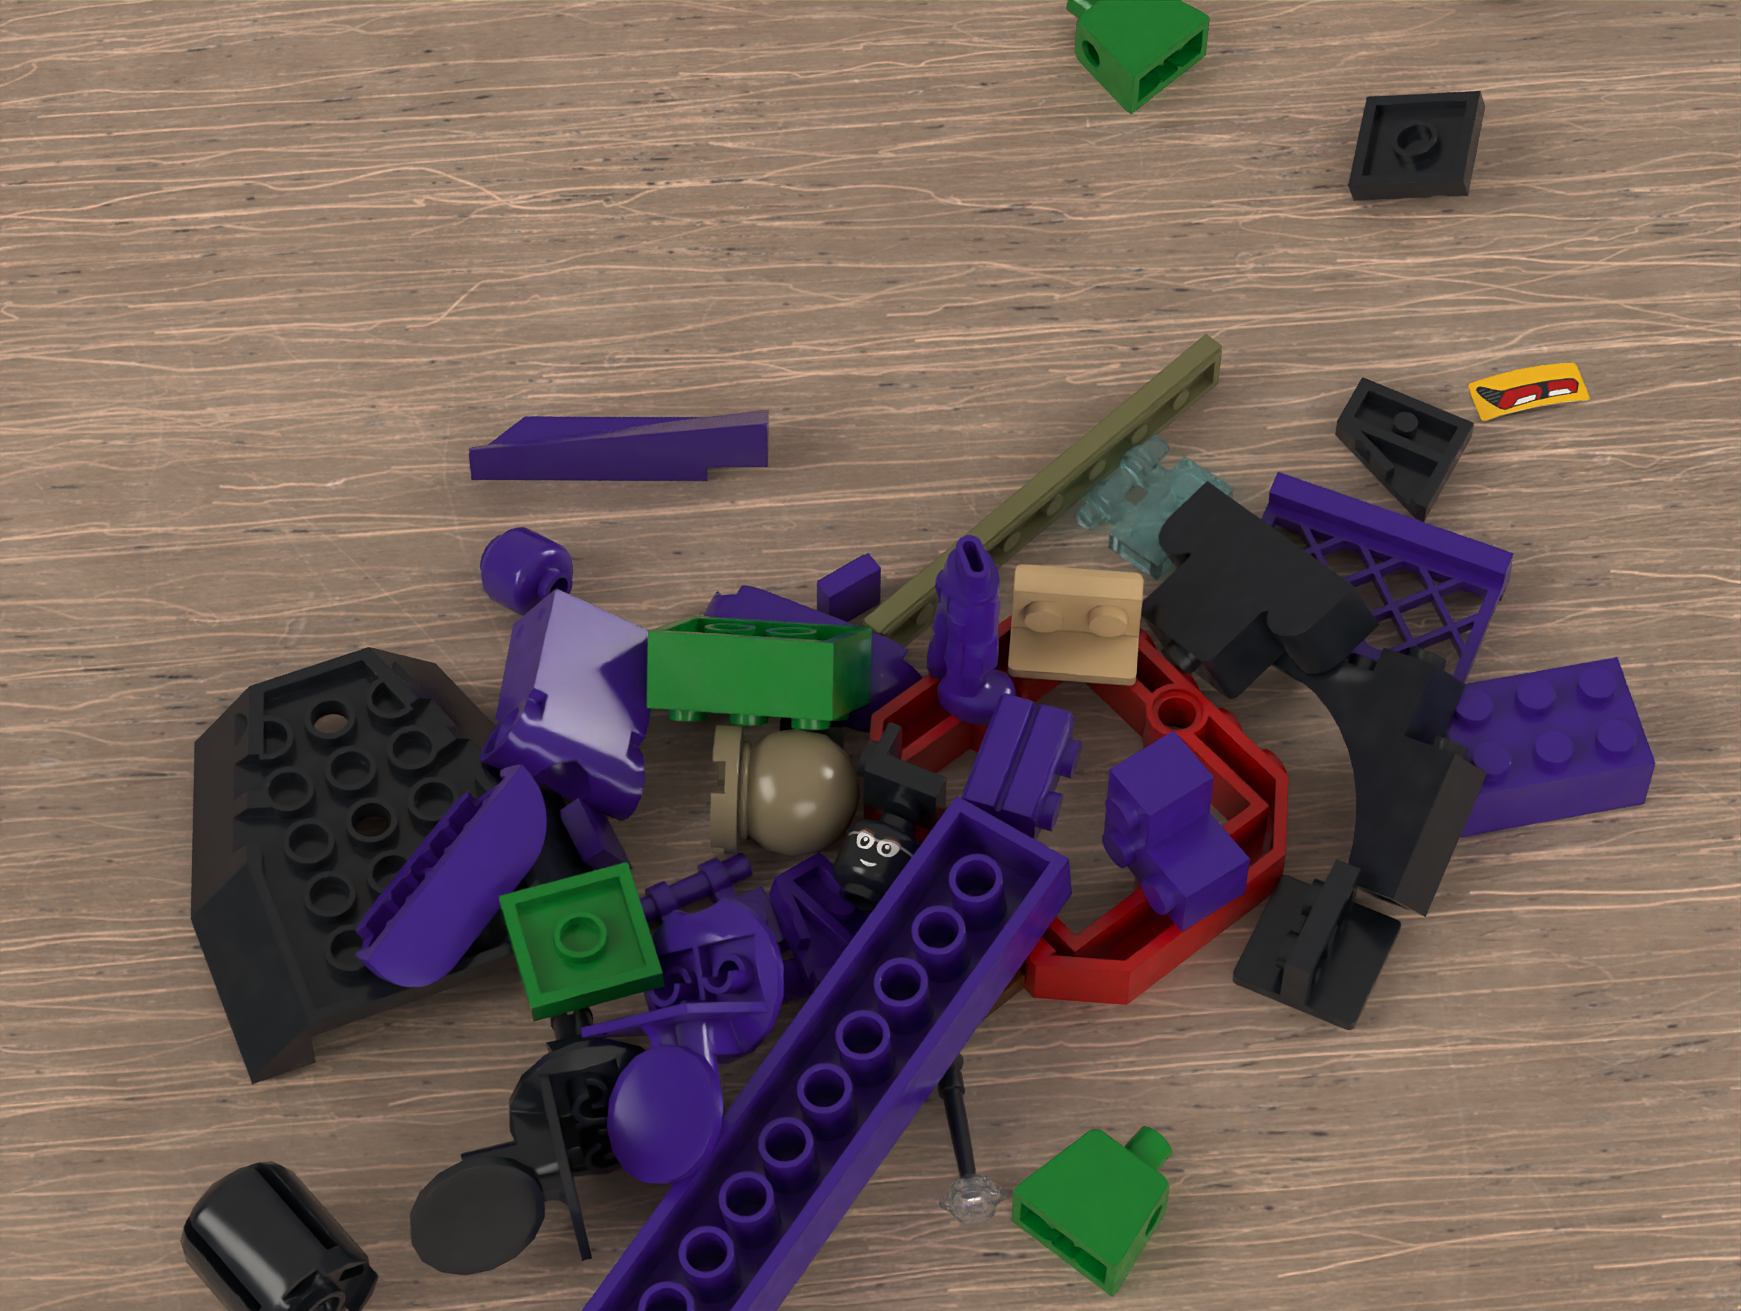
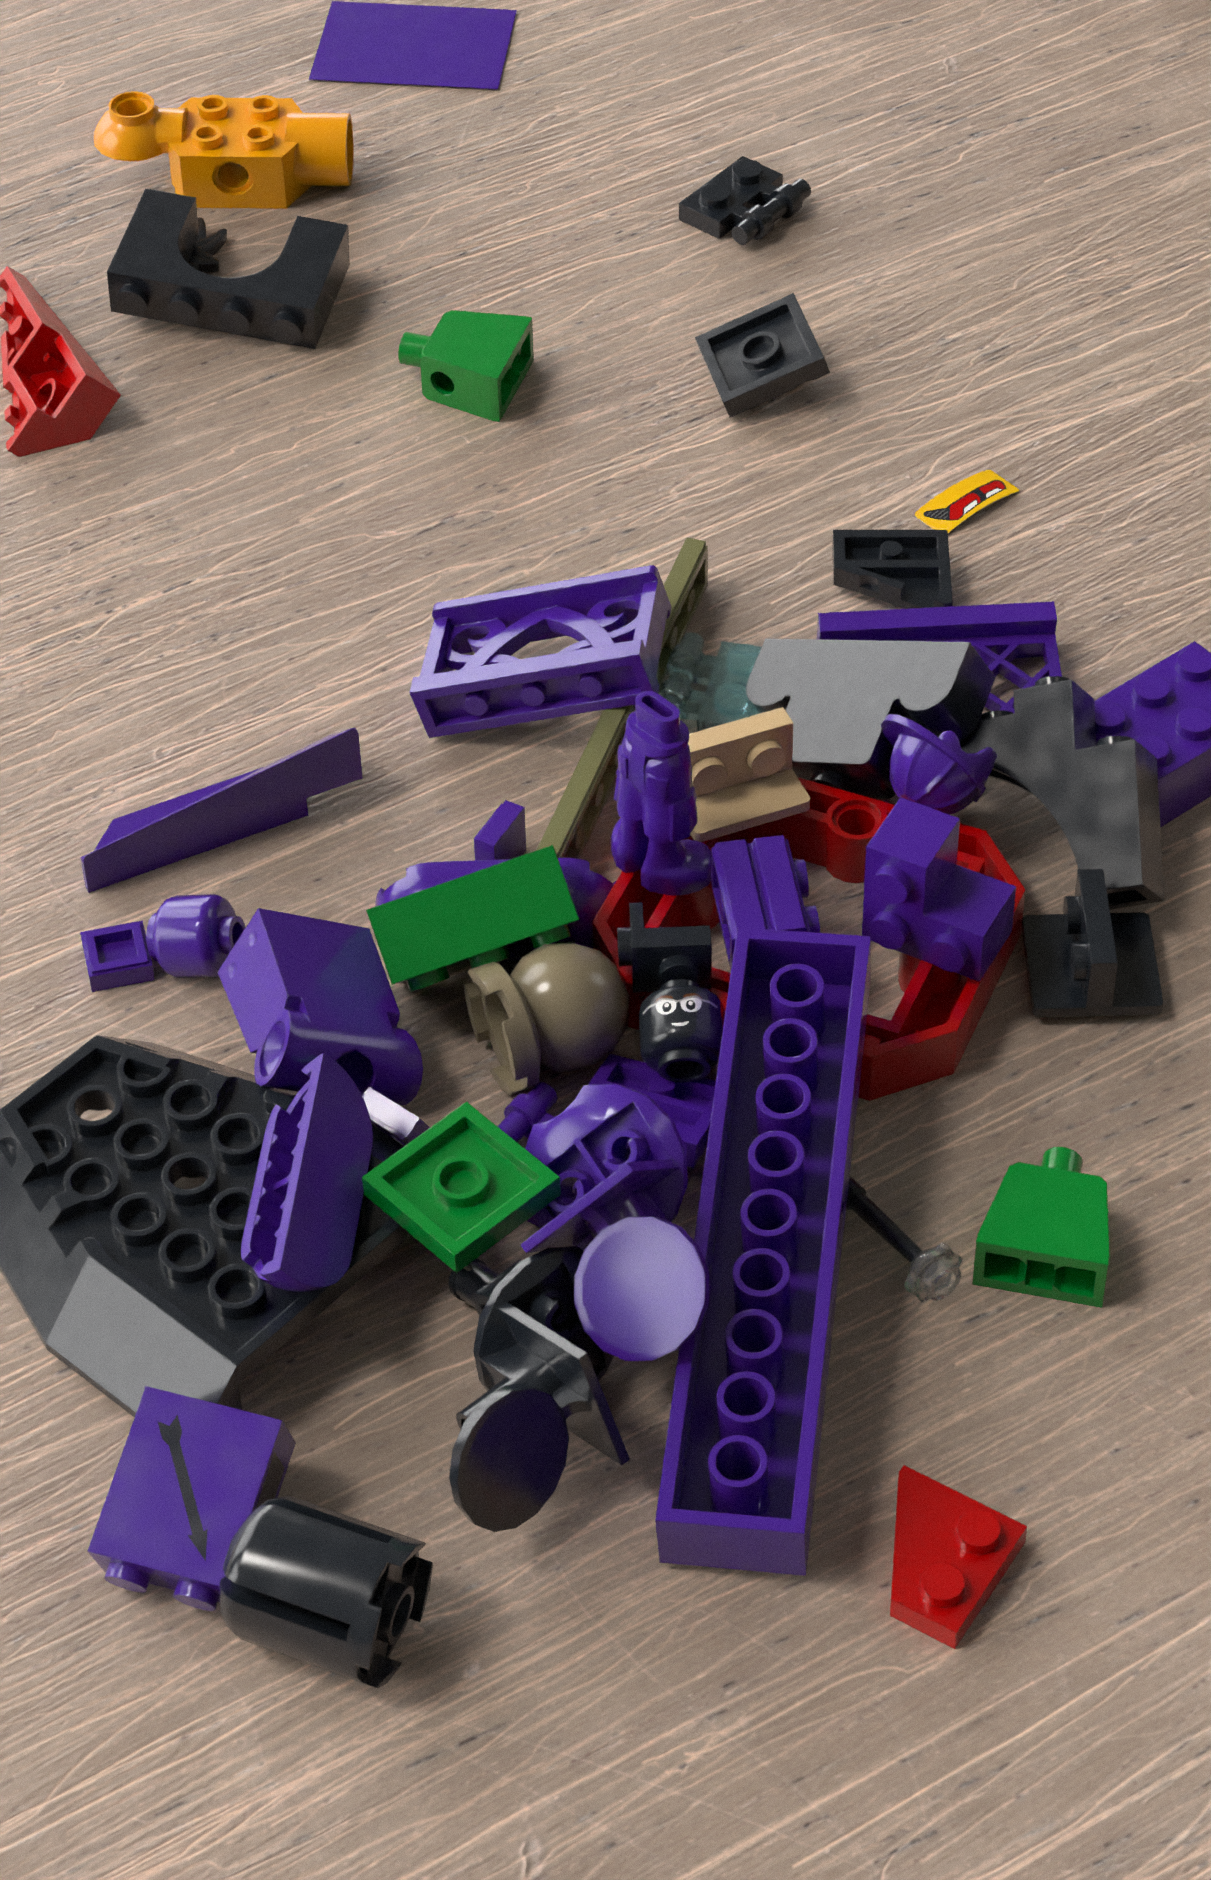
camera: 25 degrees left, 10 degrees down
(215, 1113) = (185, 1492): none -> dark purple brick
(454, 558) = (117, 956): none -> dark purple tile
(992, 453) = (591, 675): none -> dark purple fence
(1262, 704) = (935, 768): none -> dark purple piece

